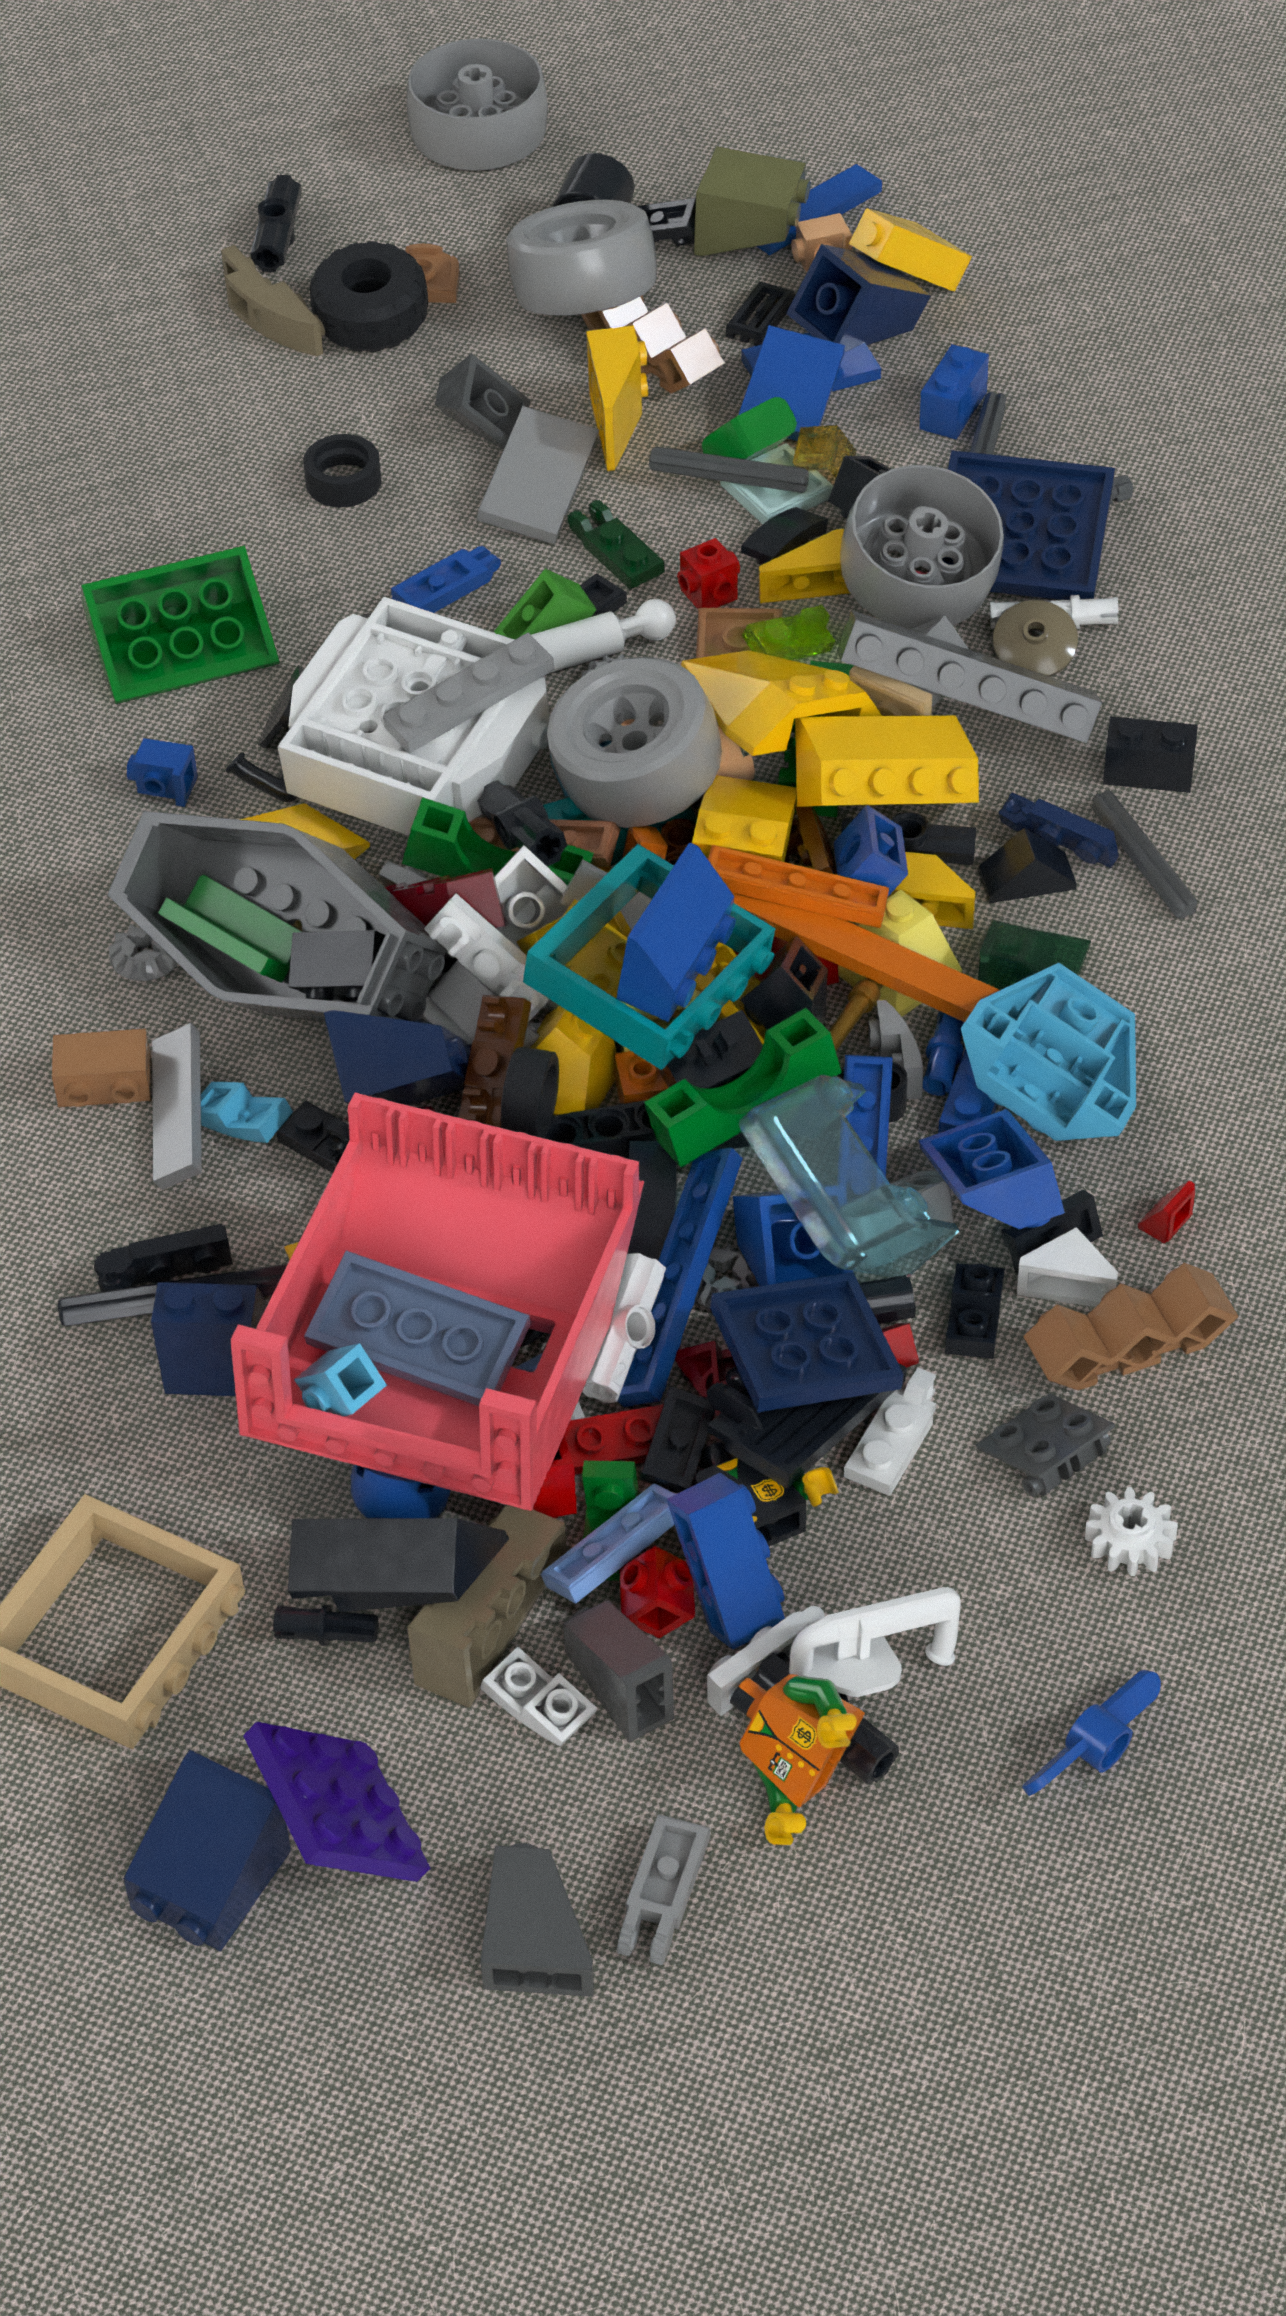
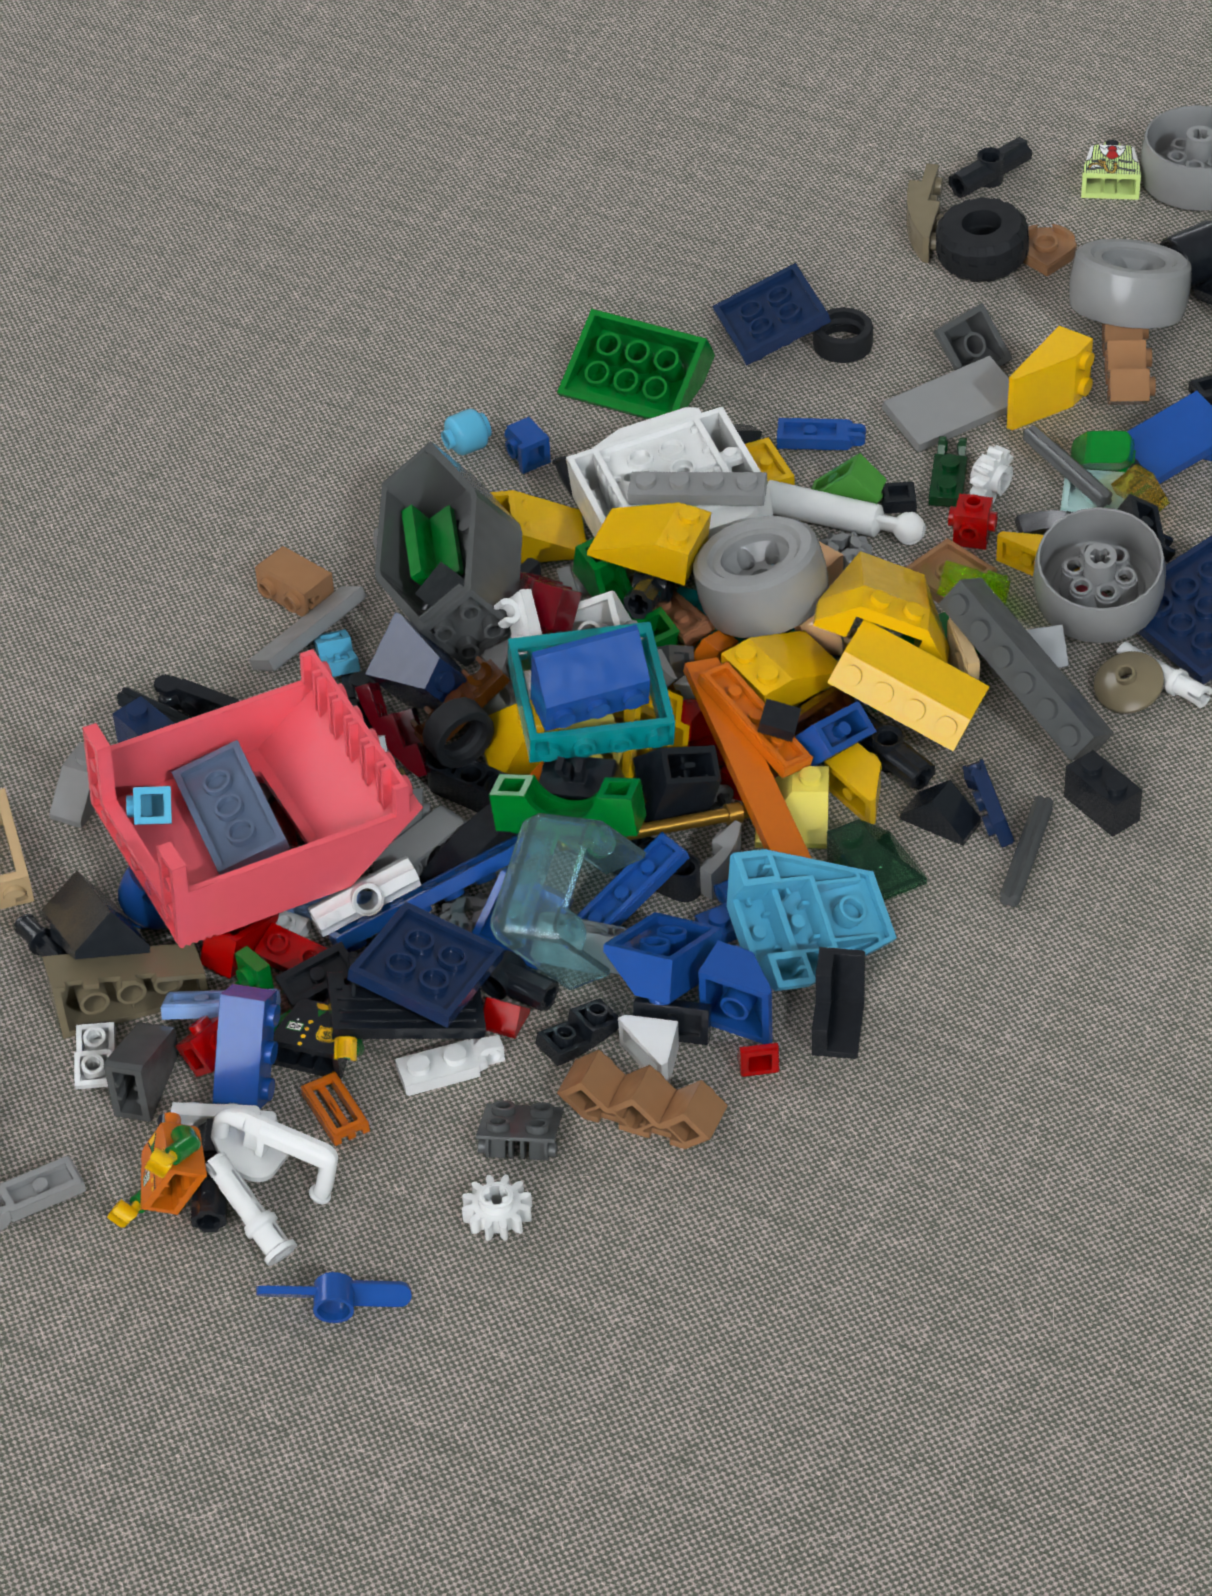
camera: 45 degrees right, 5 degrees down
(79, 795) = (466, 431): none -> medium azure head
(152, 1433) = (72, 793): none -> light grey slope
(255, 488) = (771, 314): none -> dark blue plate
(402, 164) = (1111, 172): none -> yellowish green torso
(495, 768) = (653, 539): none -> yellow slope
(675, 518) = (992, 473): none -> white gear
(829, 869) = (779, 720): none -> black tile
(841, 1567) = (346, 1128): none -> orange tile
(944, 1723) = (259, 1223): none -> white pin
(1101, 1155) = (737, 992): none -> blue slope
(1176, 1117) = (838, 1003): none -> black panel

